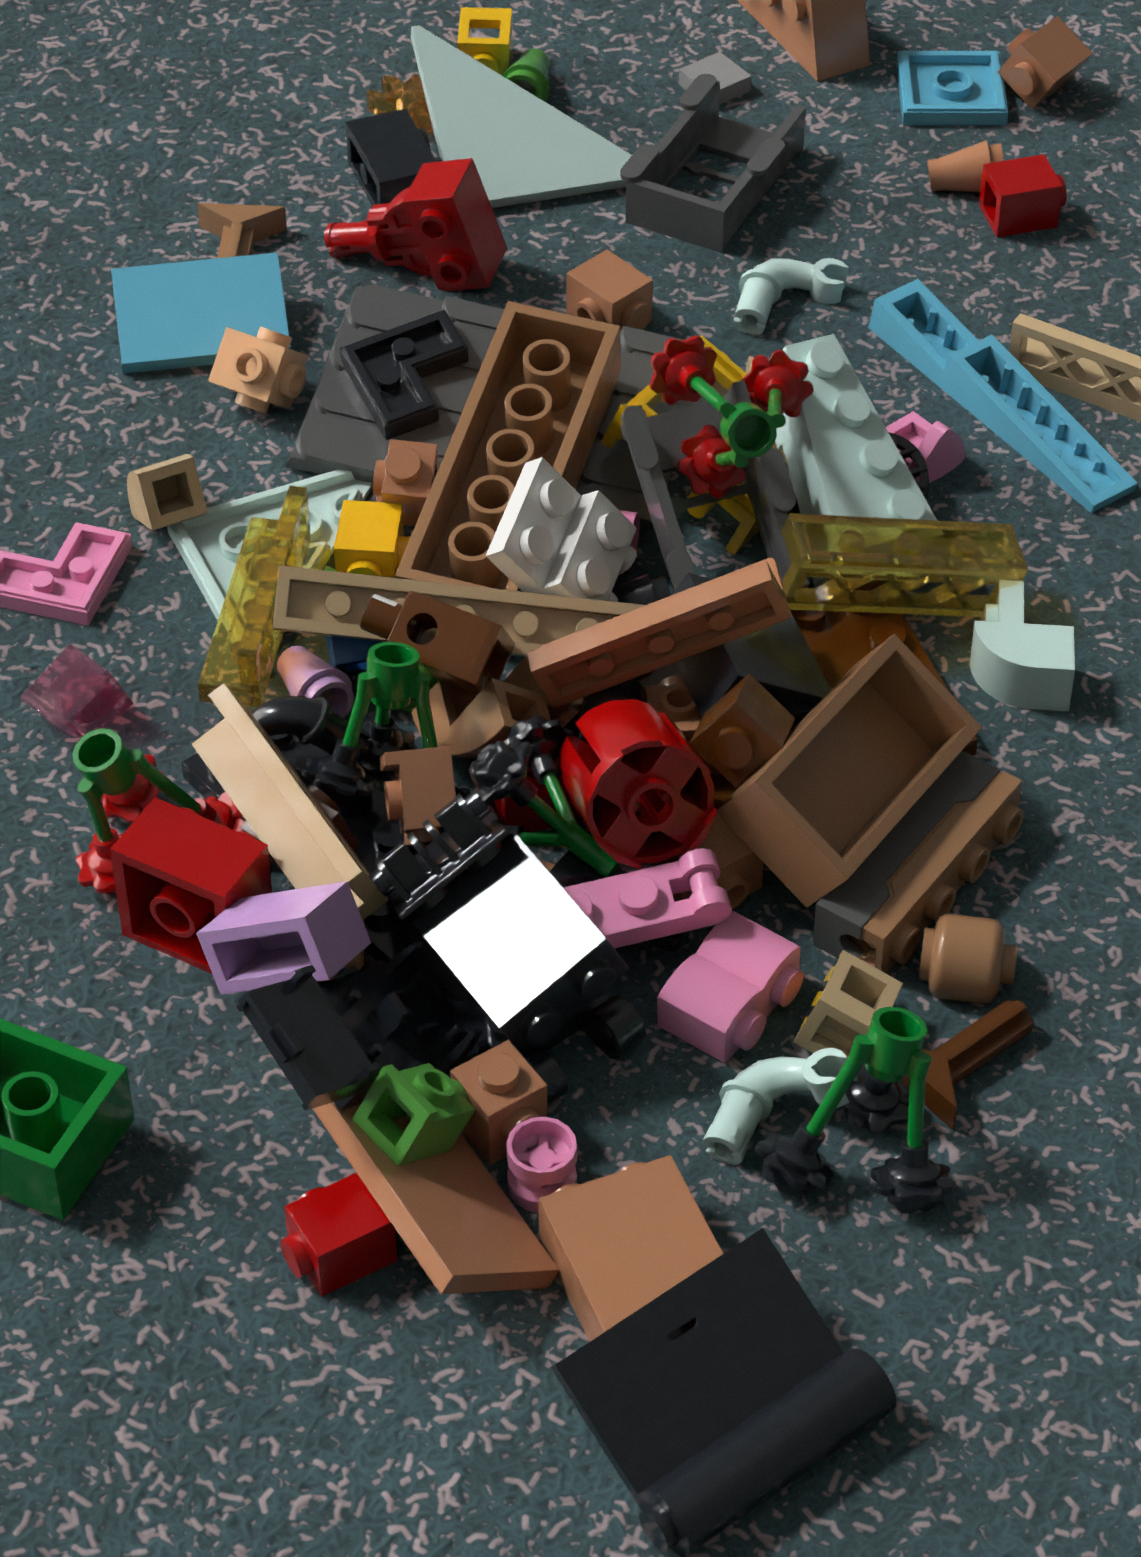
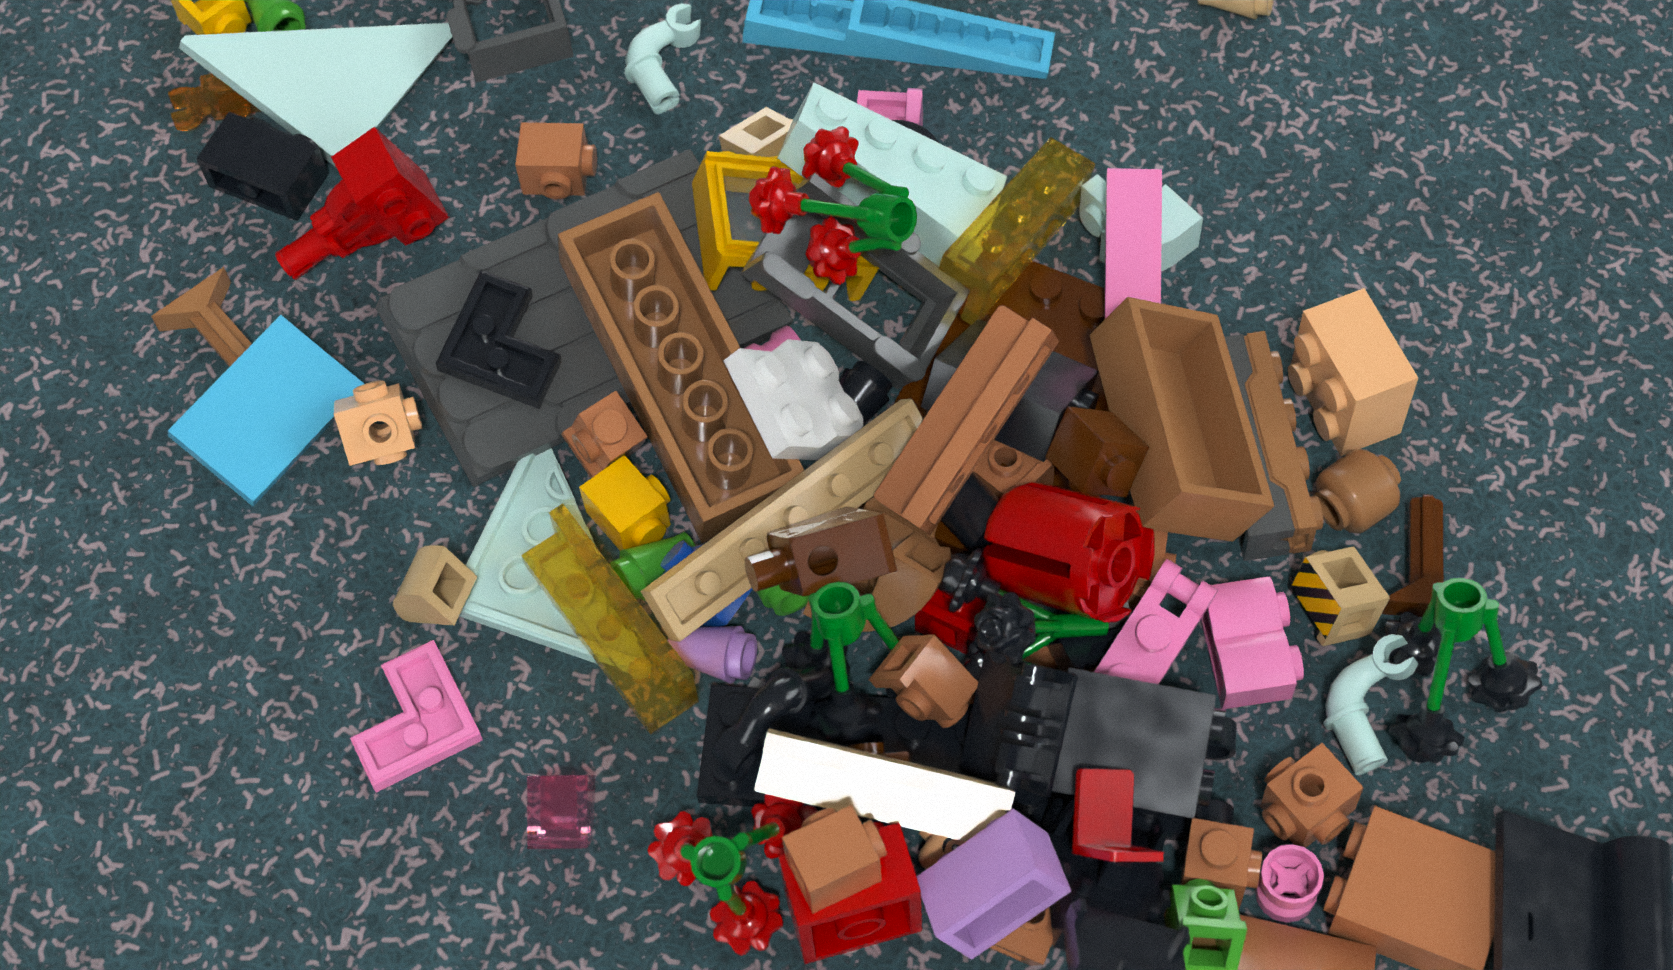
camera: 40 degrees left, 15 degrees up
(179, 812) = (834, 856): none -> nougat brick
(429, 959) = (1105, 817): none -> red bracket
(630, 1116) = (1309, 798): none -> nougat brick
(993, 632) = (1132, 236): none -> bright pink tile
(1056, 858) = (1351, 372): none -> light nougat brick

